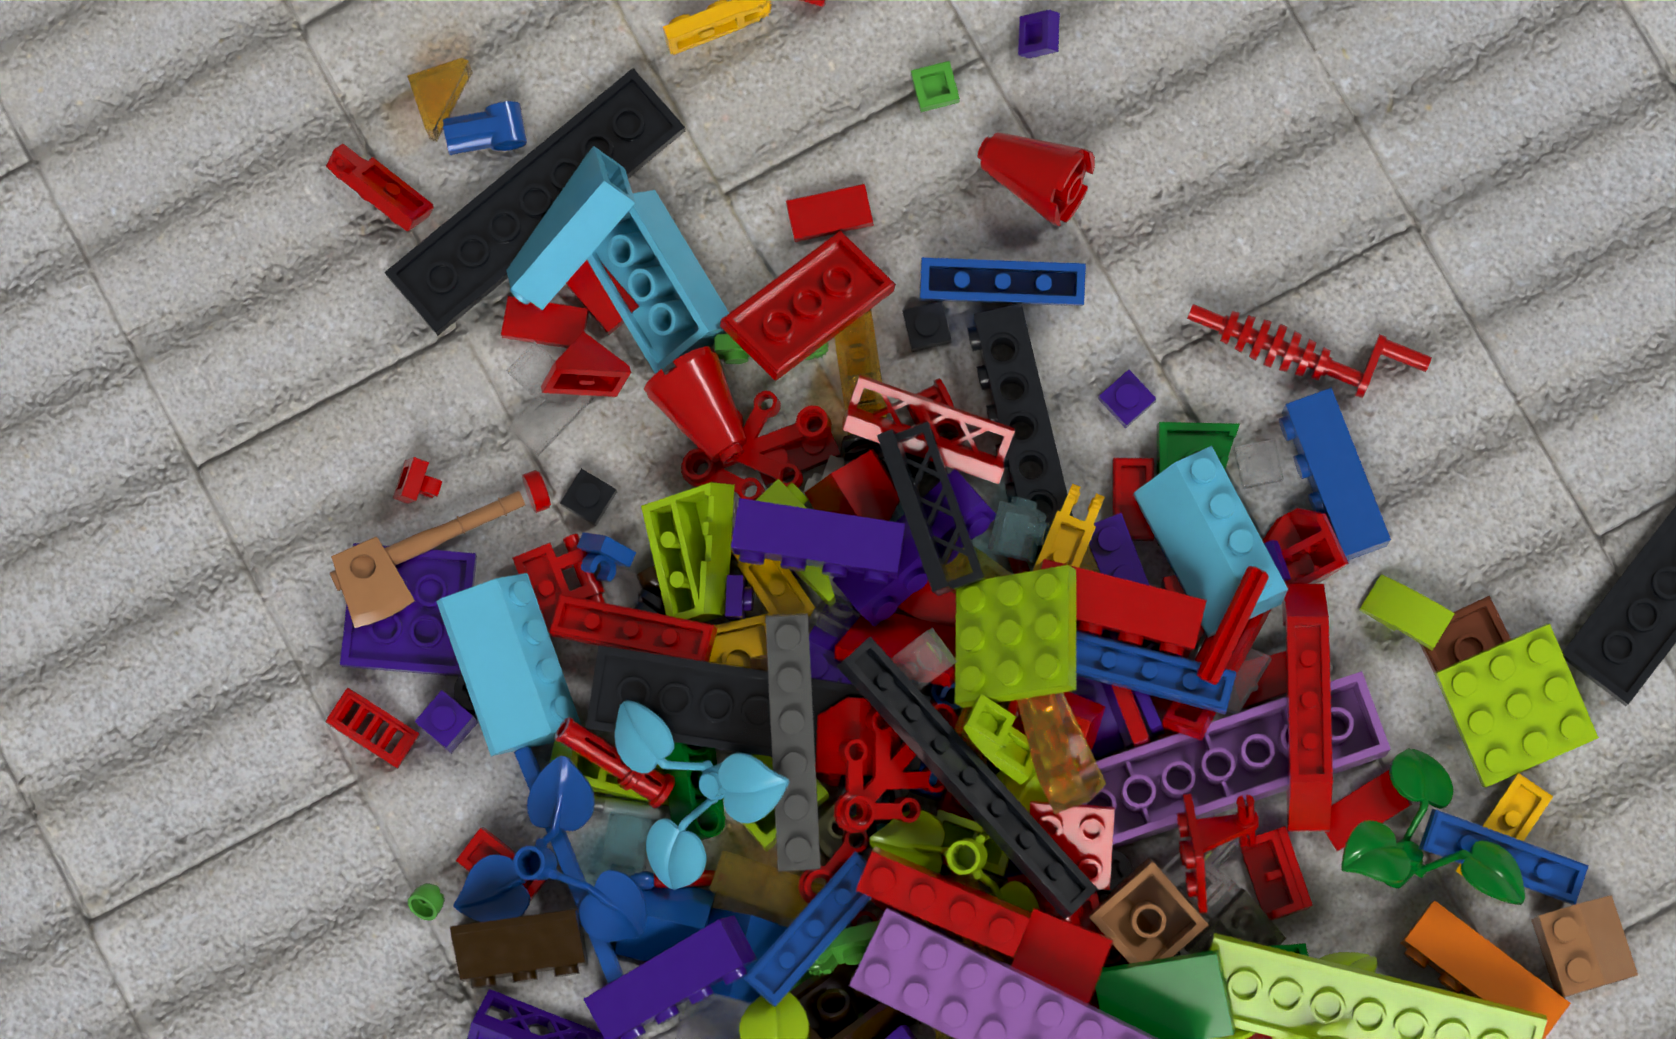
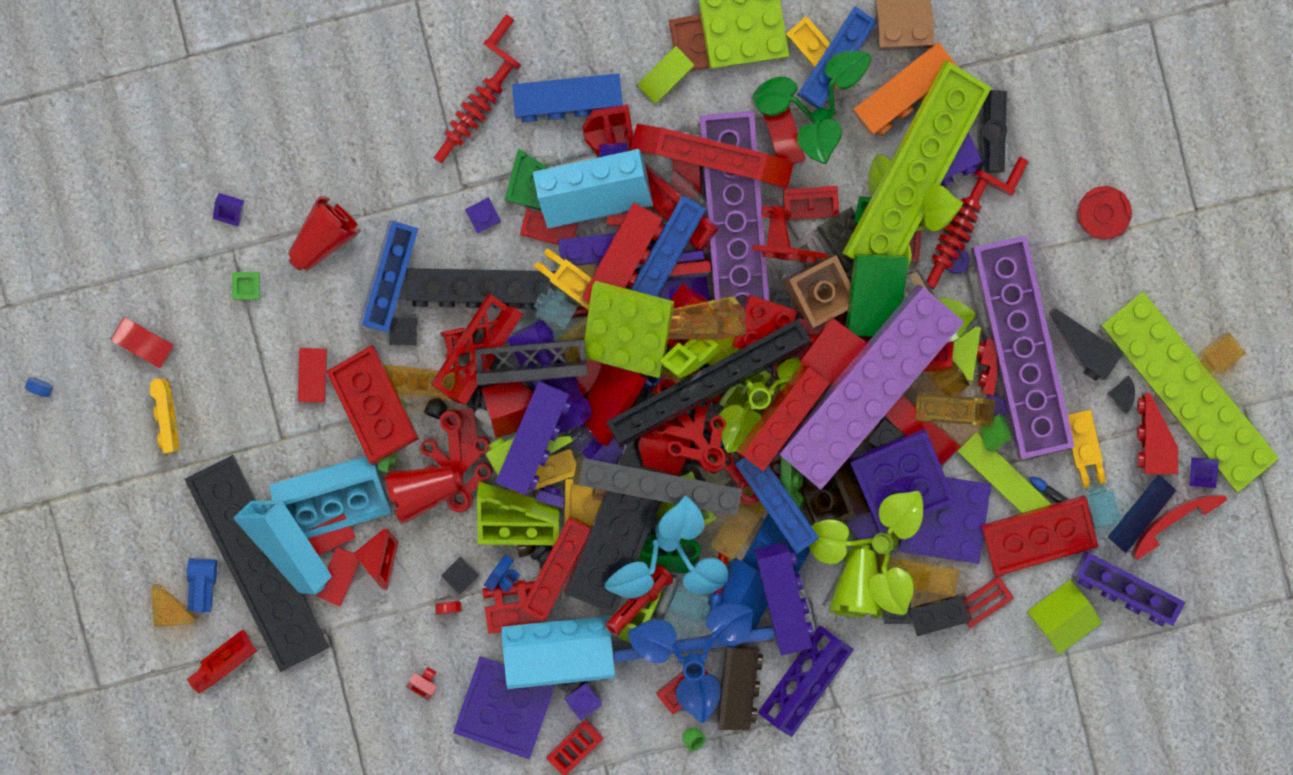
camera: 80 degrees left, 10 degrees up
(369, 571) = (475, 727): medium nougat piece -> none
(827, 398) = (435, 408): none -> black hinge
(924, 659) = (628, 391): clear plate -> none
(1232, 625) = (654, 190): red axle -> none

